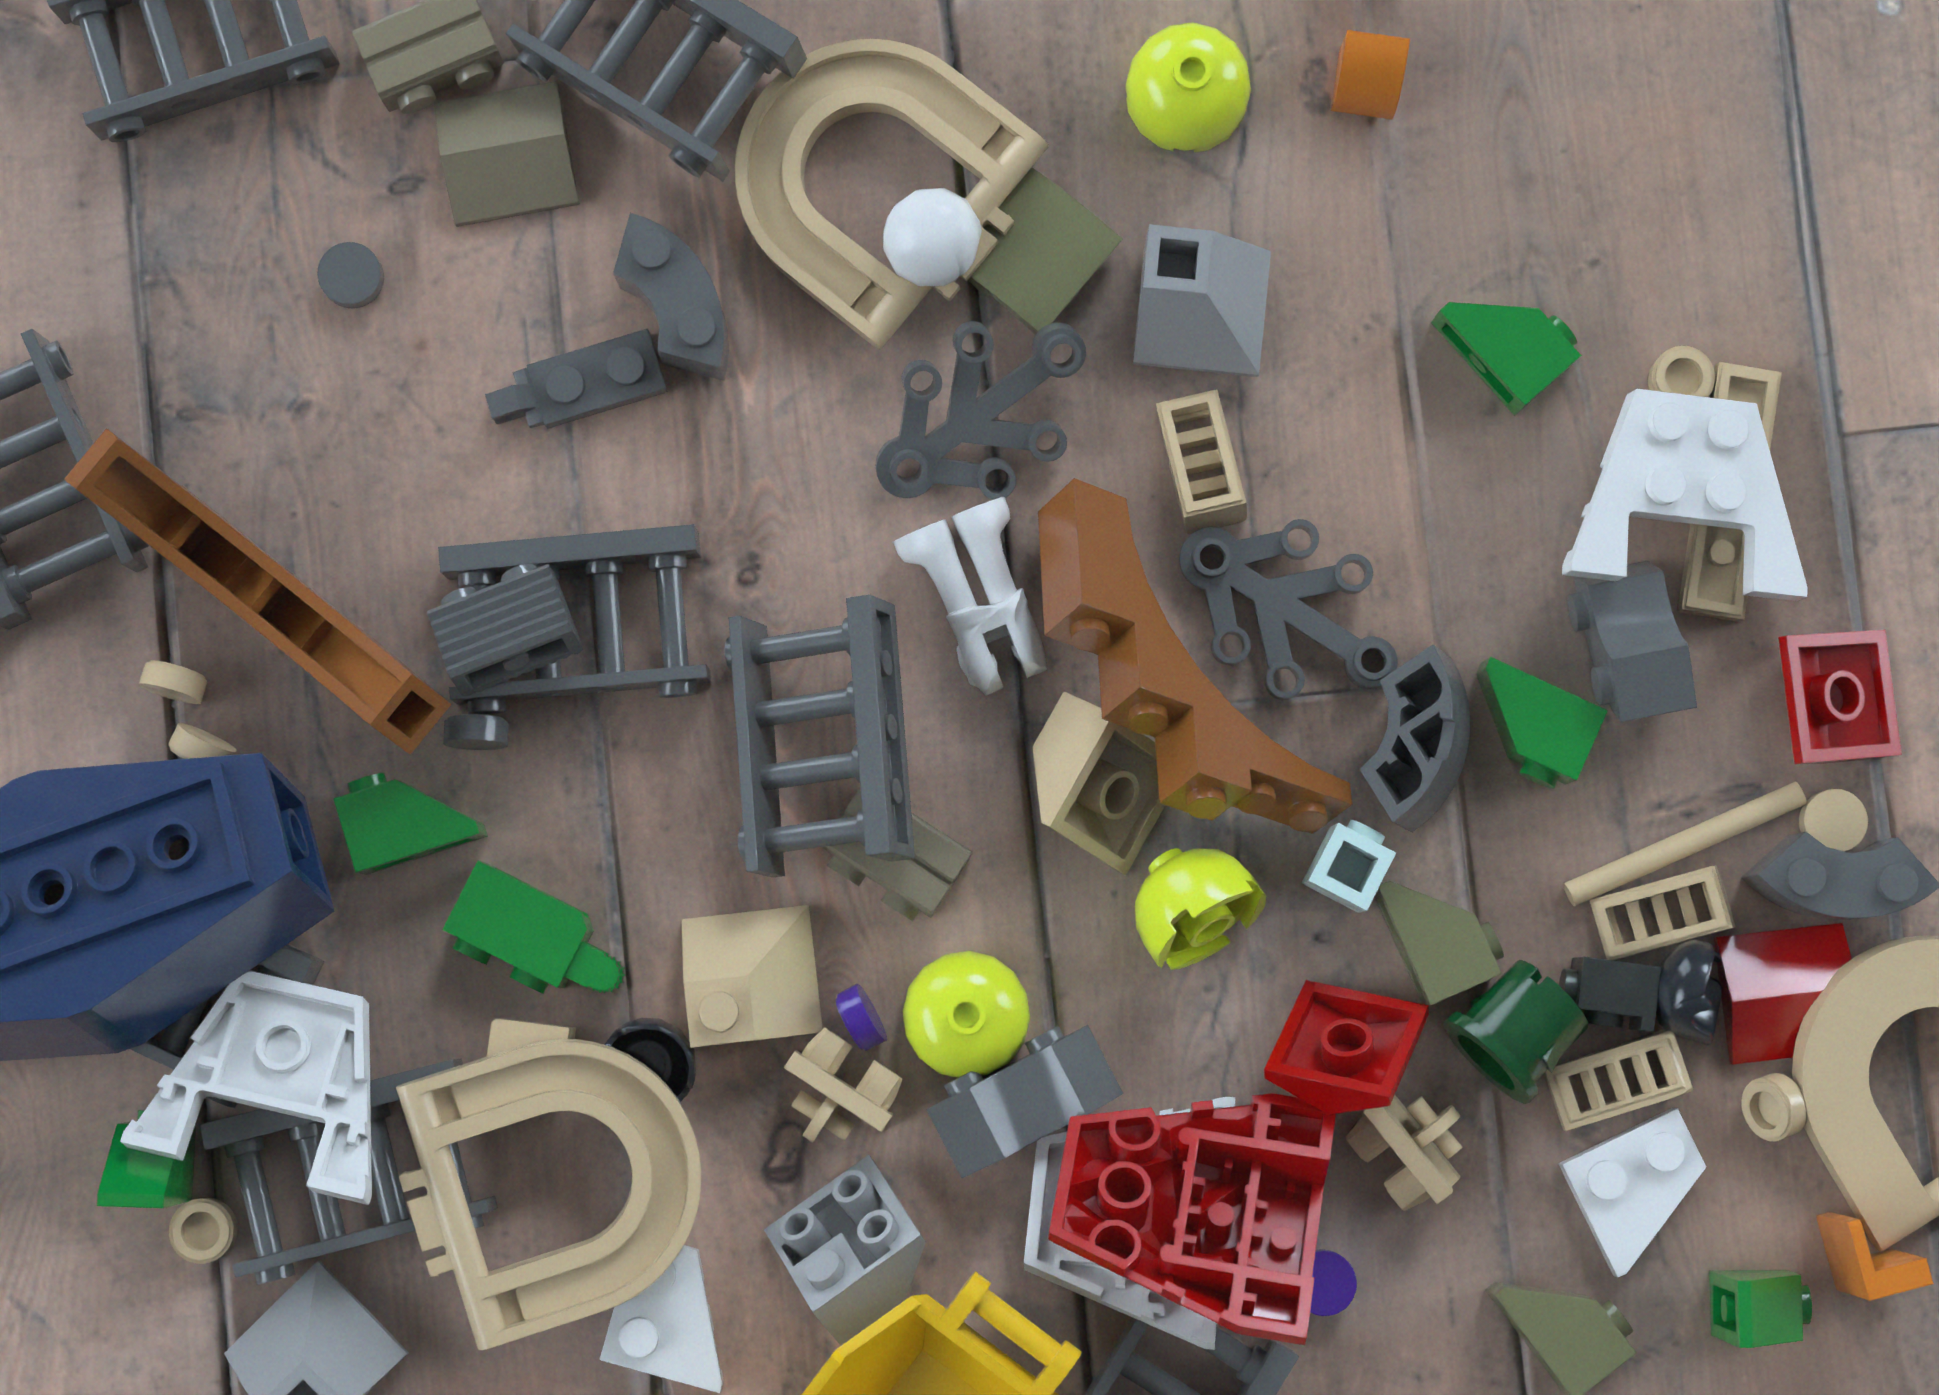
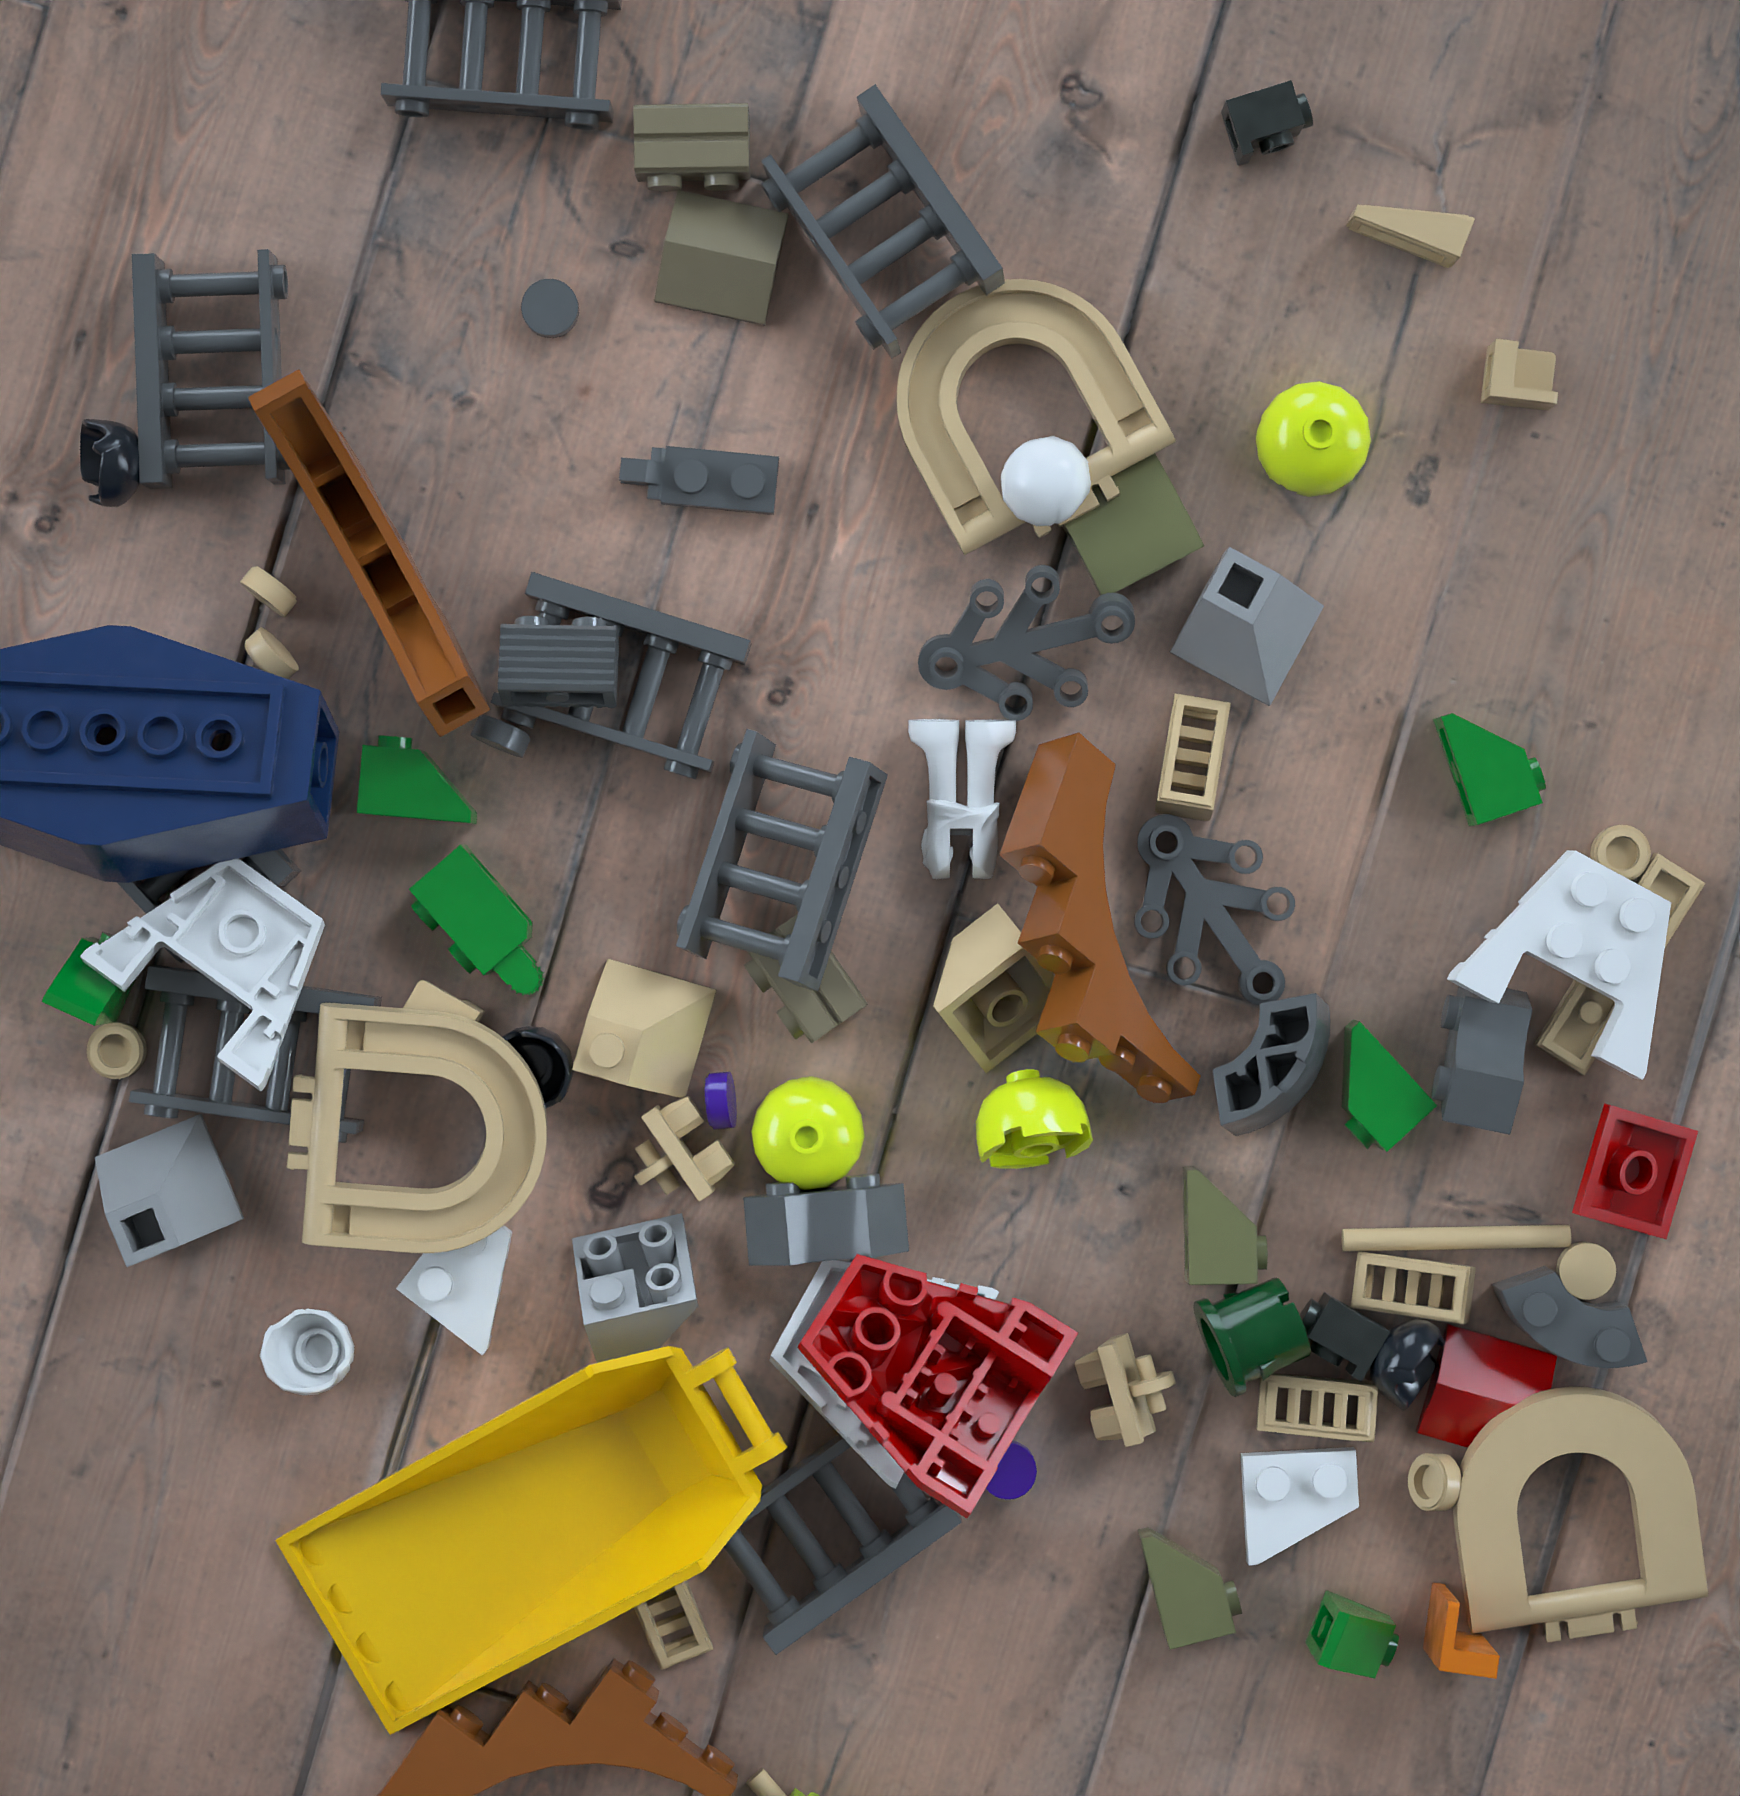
camera: 20 degrees right, 5 degrees up
(680, 294) = (816, 440): dark grey brick -> none
(1345, 1047) = (1104, 1290): red slope -> none
(1350, 865) = (1172, 1143): light aqua brick -> none
(1370, 74) = (1469, 491): orange brick -> none

